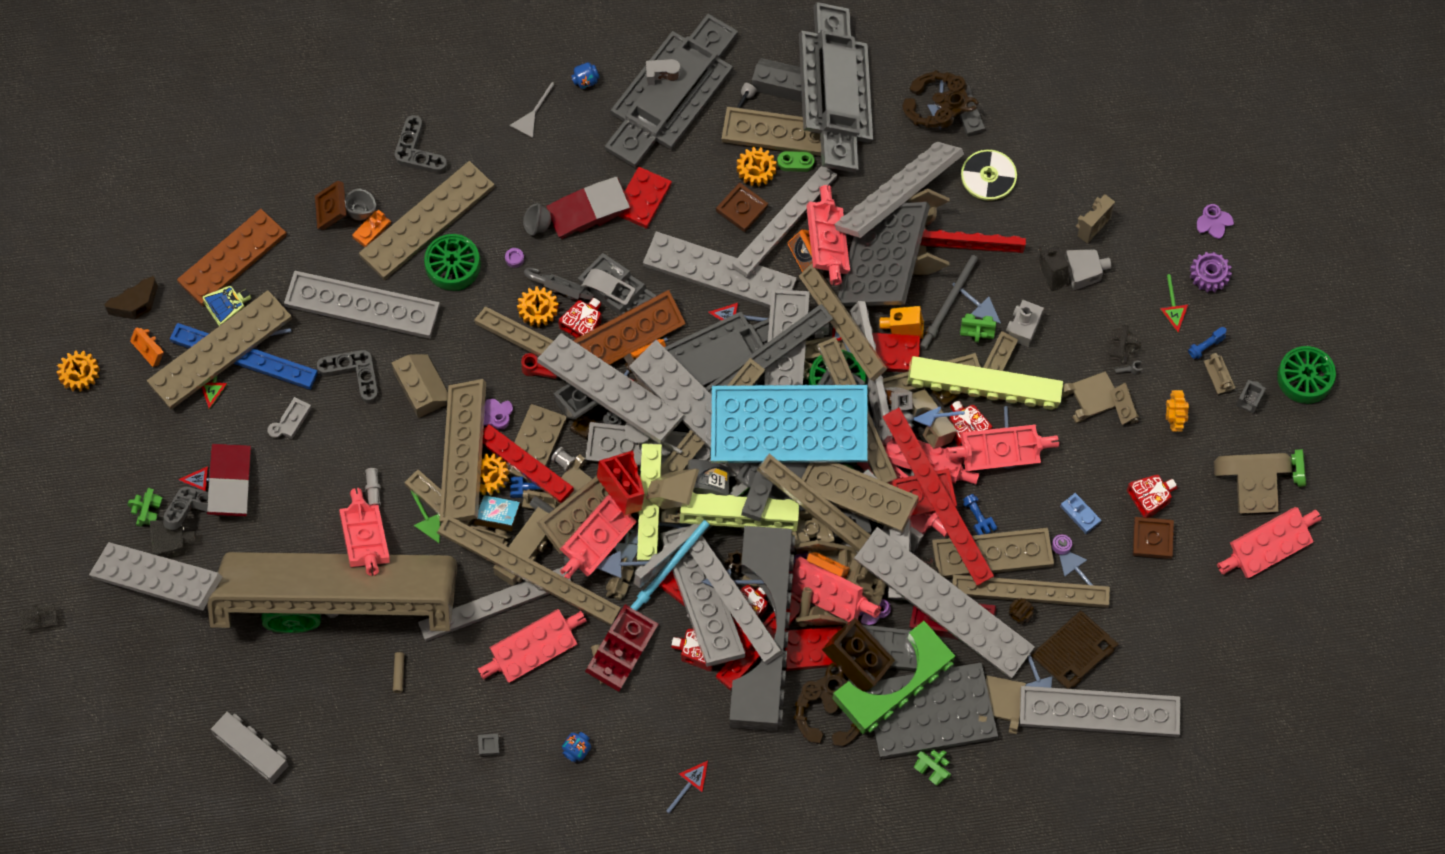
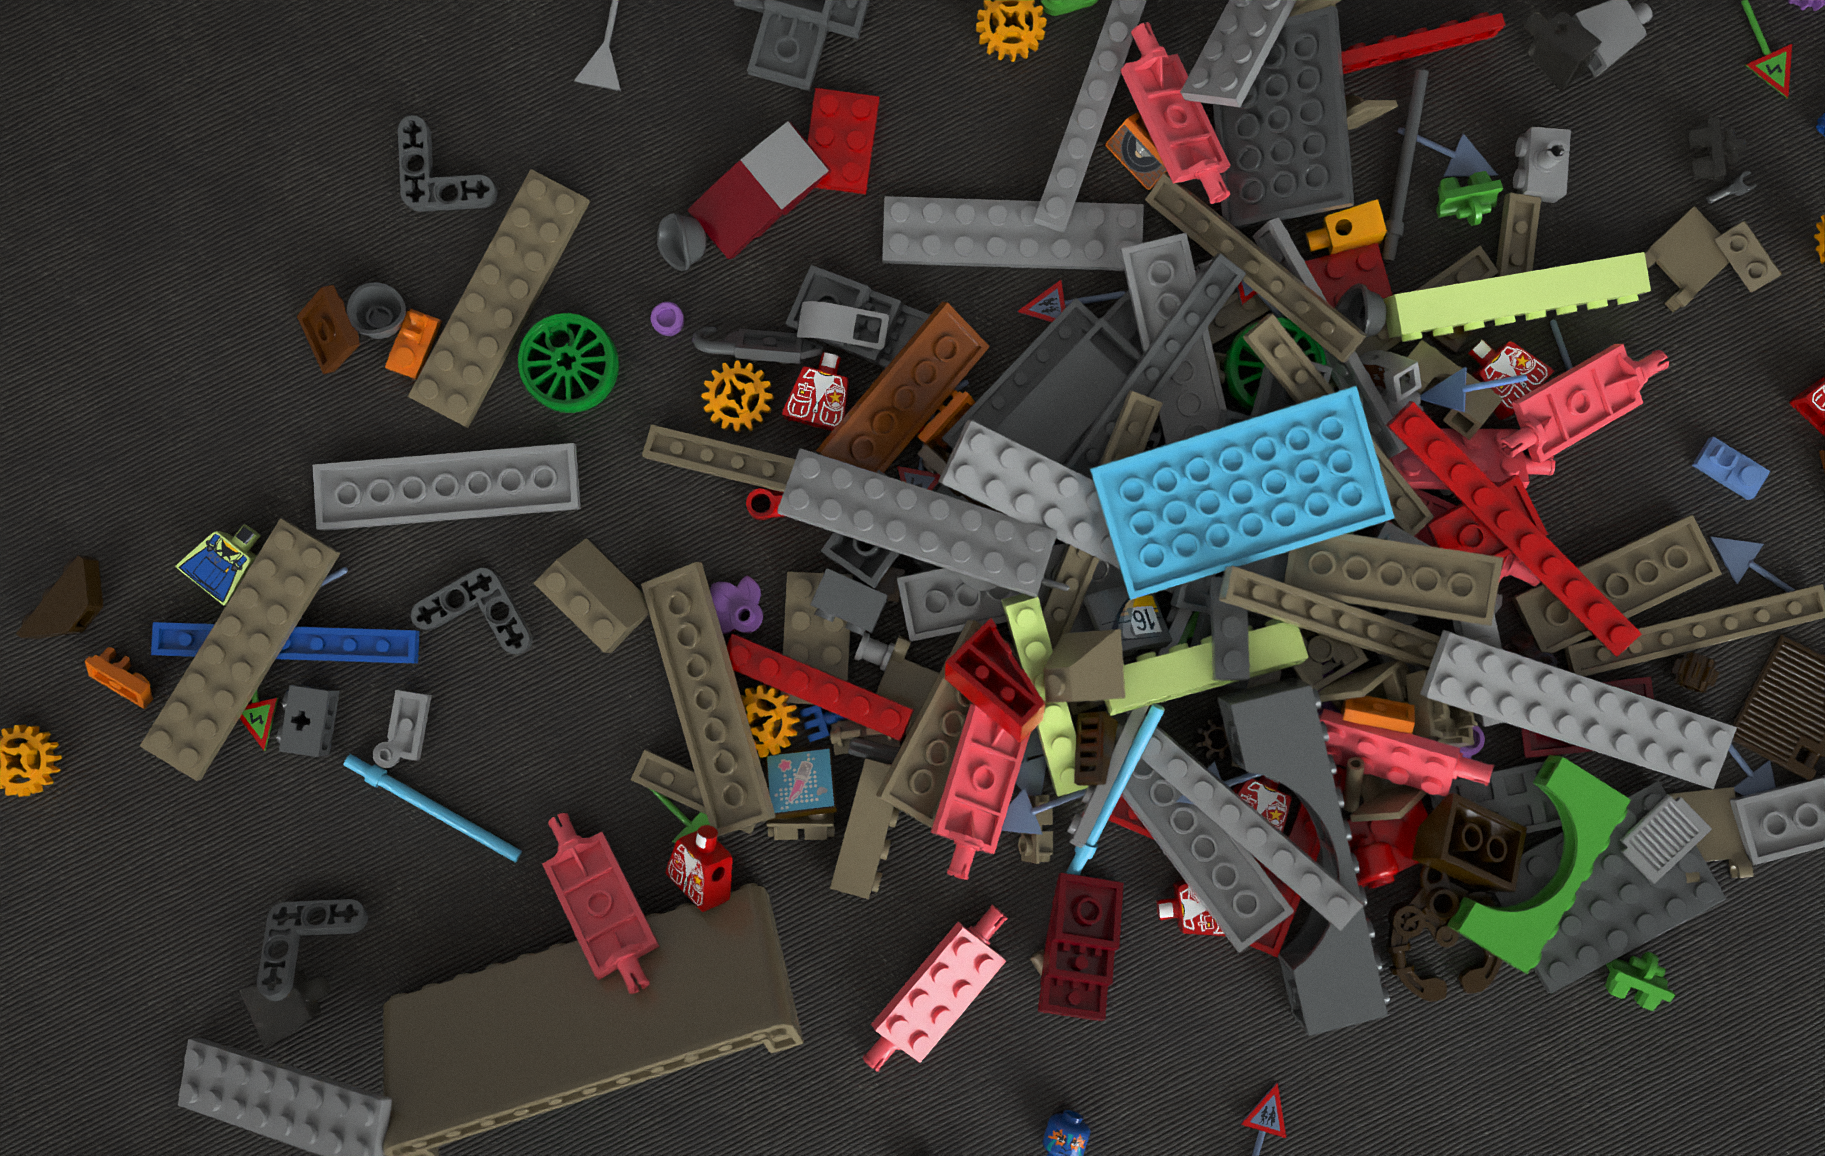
camera: 15 degrees left, 20 degrees up
(148, 500) = (228, 976): bright green hips -> none
(197, 479) = (294, 877): piece -> none
(229, 480) = (342, 873): slope -> none
(232, 256) = (200, 470): dark orange plate -> none
(242, 406) = (321, 709): none -> dark grey brick
(266, 441) = (378, 776): none -> medium azure bar
(372, 486) = (582, 803): light grey pin -> none
(398, 672) = (738, 1102): dark tan piece -> none
(424, 533) = (701, 868): none -> red torso
(488, 607) = (869, 918): light grey plate -> none
(528, 570) = (885, 878): dark tan plate -> none
(559, 425) = (849, 601): none -> dark grey brick
(665, 534) = (1093, 727): none -> dark brown slope
(742, 207) = (1011, 106): reddish brown plate -> none
(801, 649) = (1375, 862): none -> red head
(896, 364) = (1363, 309): none -> dark grey helmet
(970, 501) = (1553, 508): blue hinge -> none
(971, 689) = (1663, 837): none -> light grey window
(1062, 544) = (1720, 533): medium lavender tile -> none

